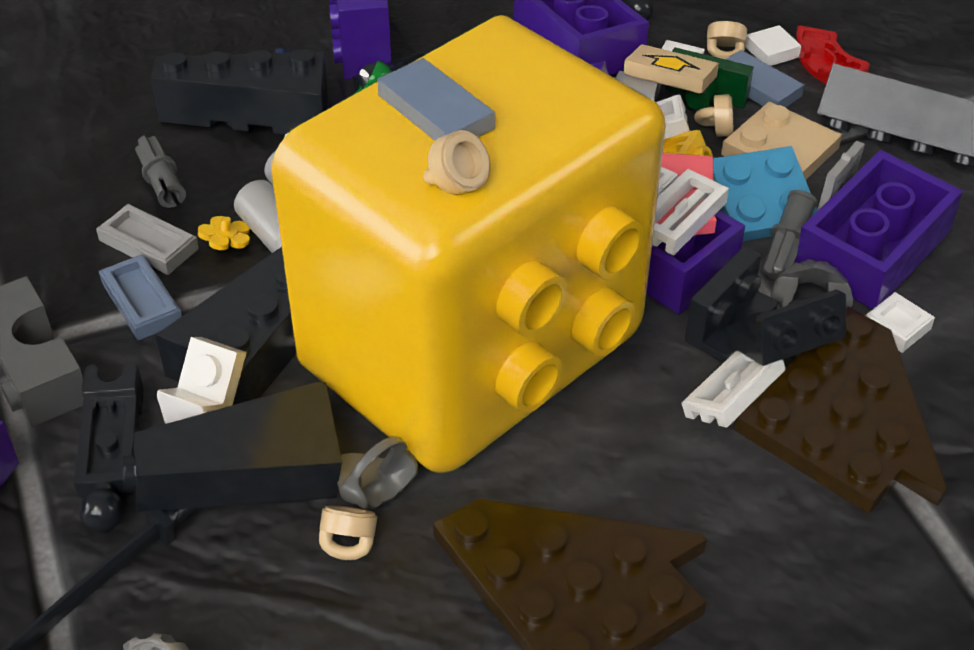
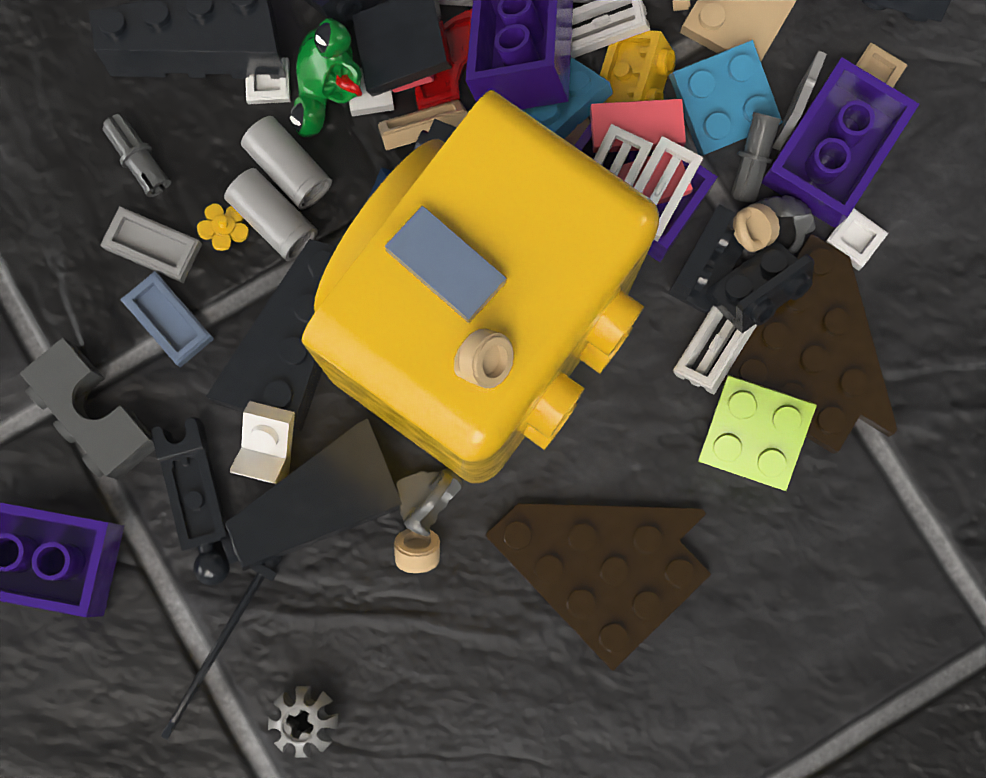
camera: 10 degrees left, 35 degrees up
(774, 465) = (757, 432): none -> lime plate
(784, 279) = (756, 227): none -> tan tile

